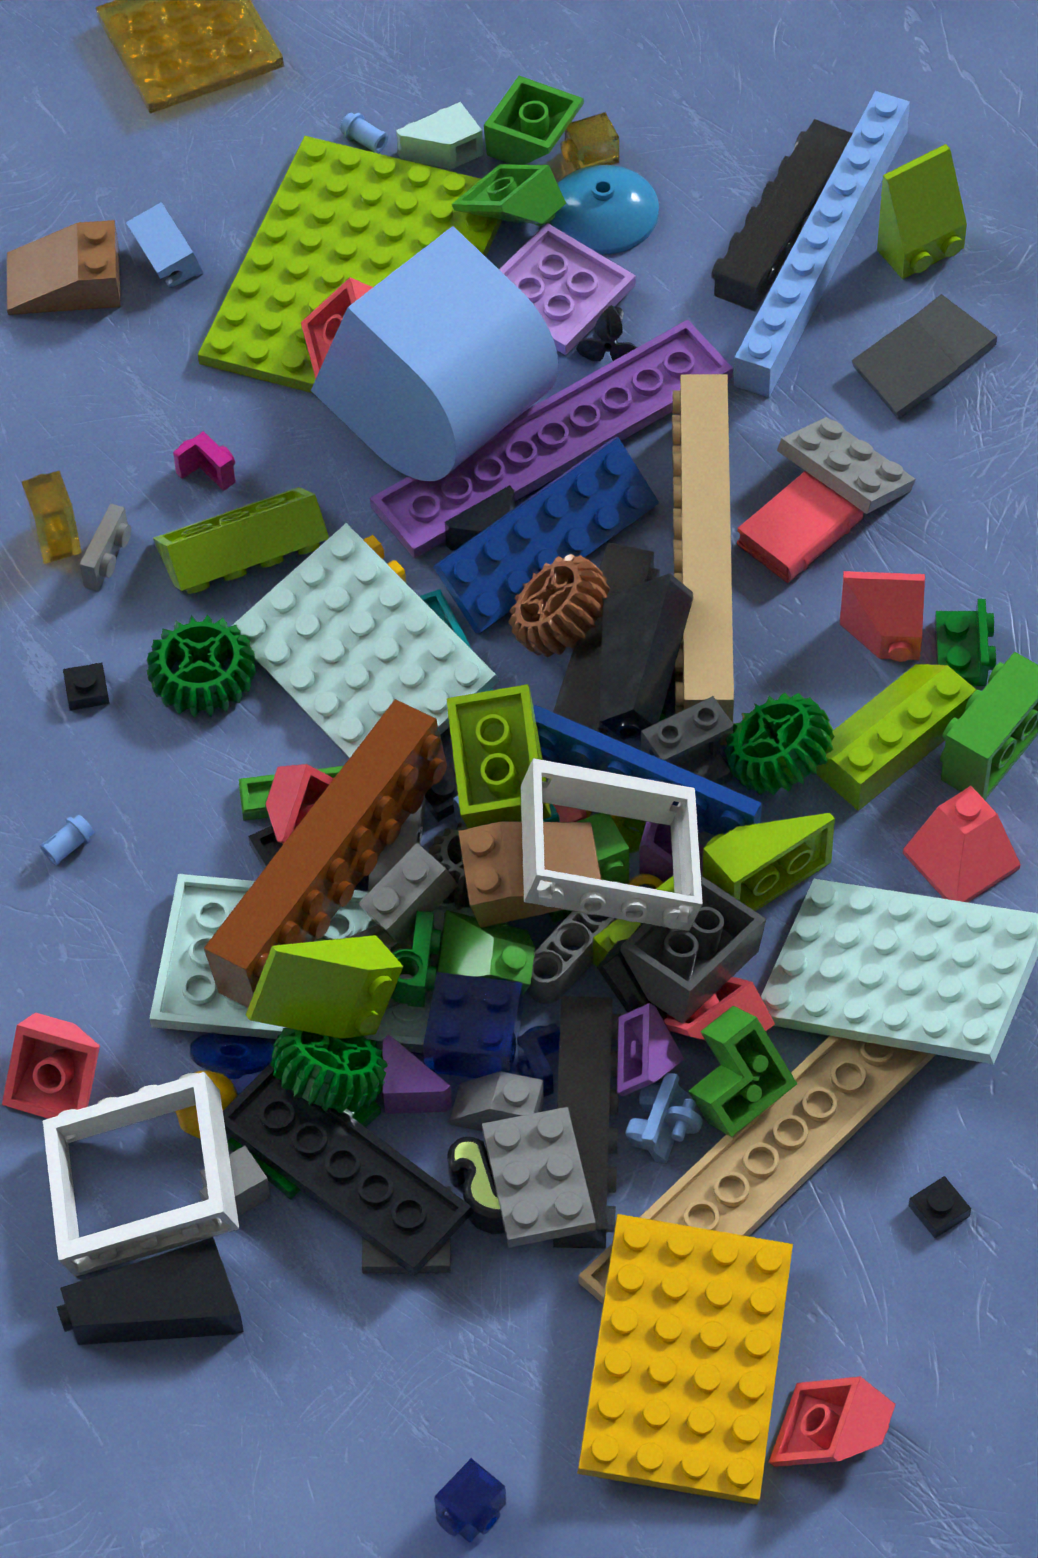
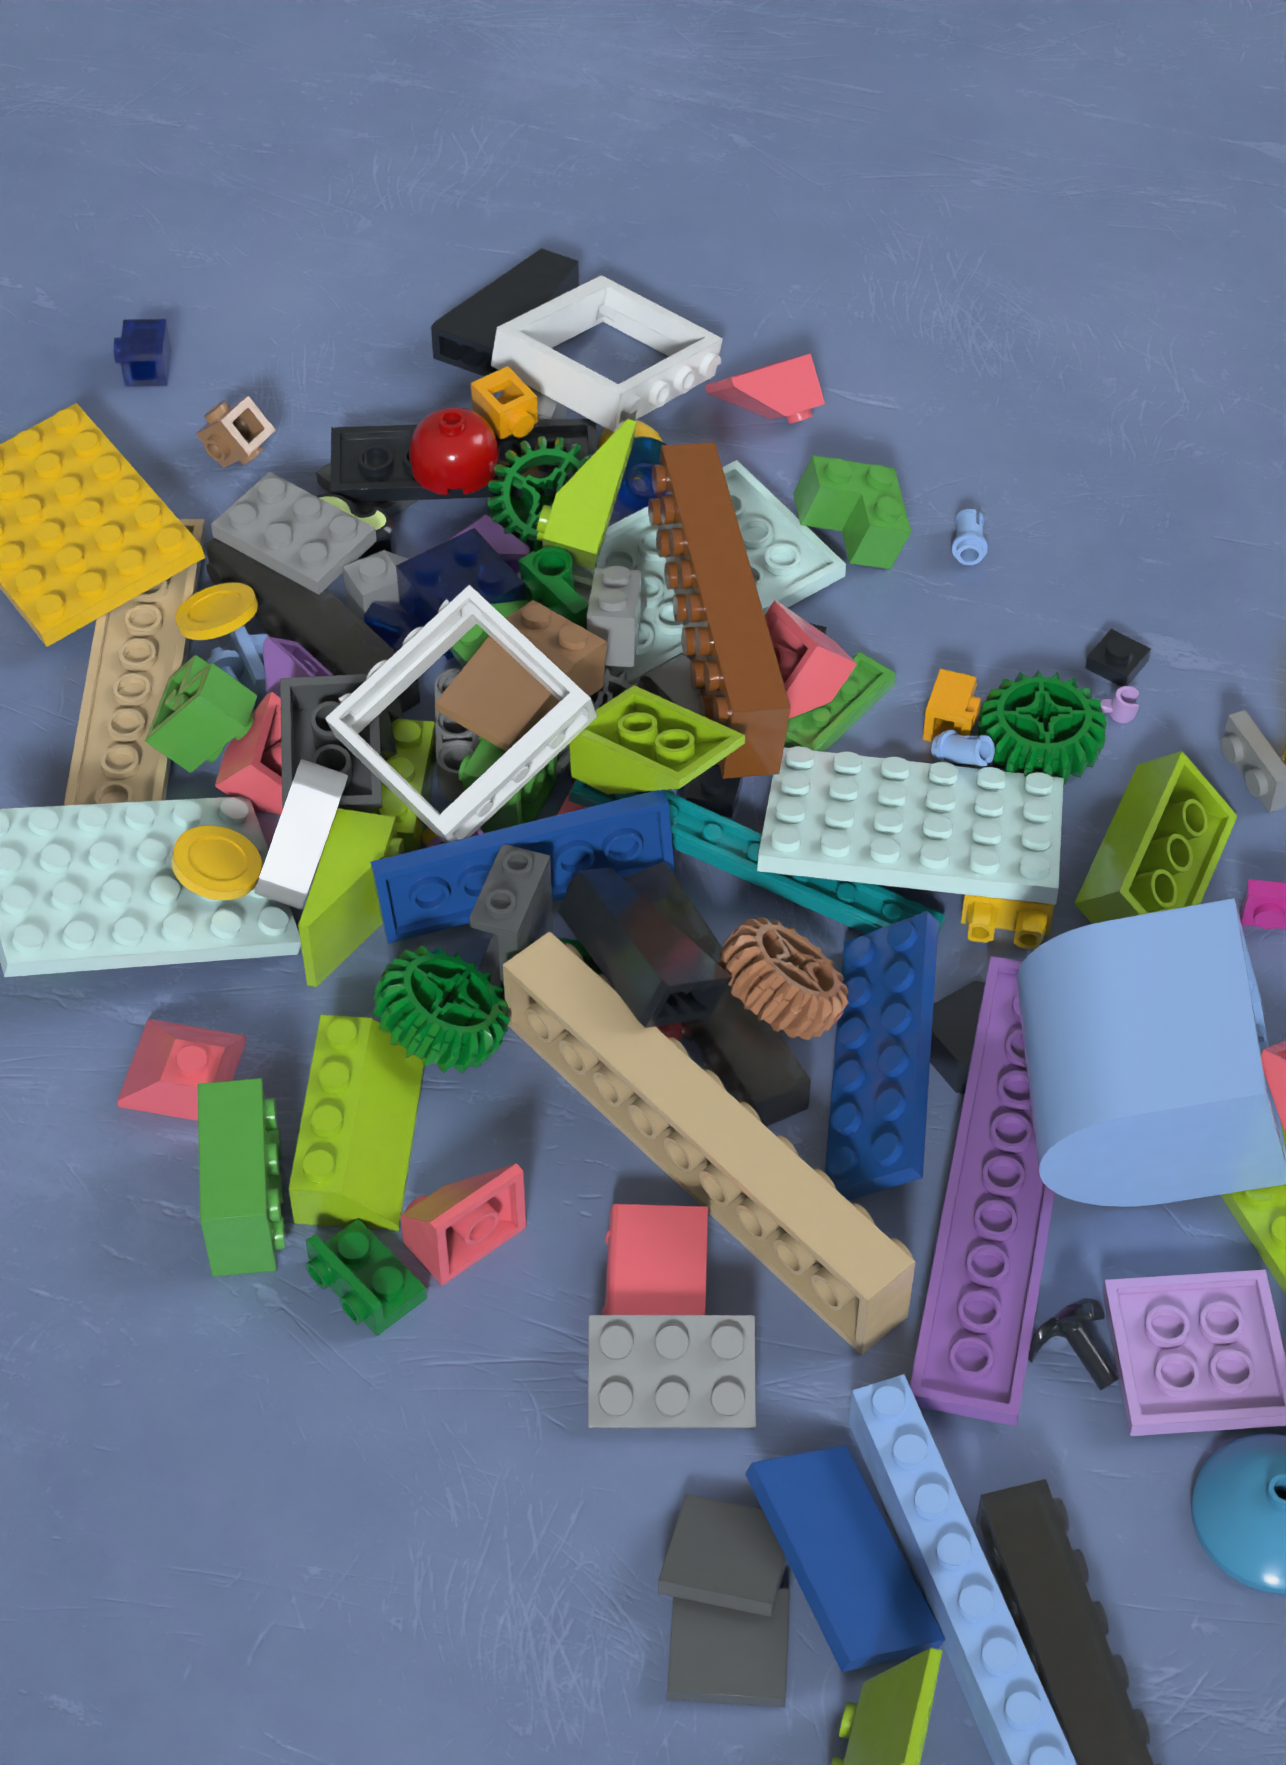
camera: 135 degrees right, 5 degrees down
(122, 900) = (858, 501): none -> bright green brick
(130, 656) = (1123, 705): none -> lavender hand
(238, 721) = (951, 705): none -> light orange brick
(268, 687) = (962, 749): none -> light blue pin
(281, 1156) = (511, 412): none -> light orange brick
(358, 1151) = (453, 451): none -> red cylinder
(482, 1338) = (235, 432): none -> medium nougat brick
(653, 1156) = (216, 611): none -> yellow piece
(770, 892) = (301, 834): none -> beam
(836, 933) = (216, 862): none -> yellow piece
(847, 325) = (844, 1557): none -> blue tile

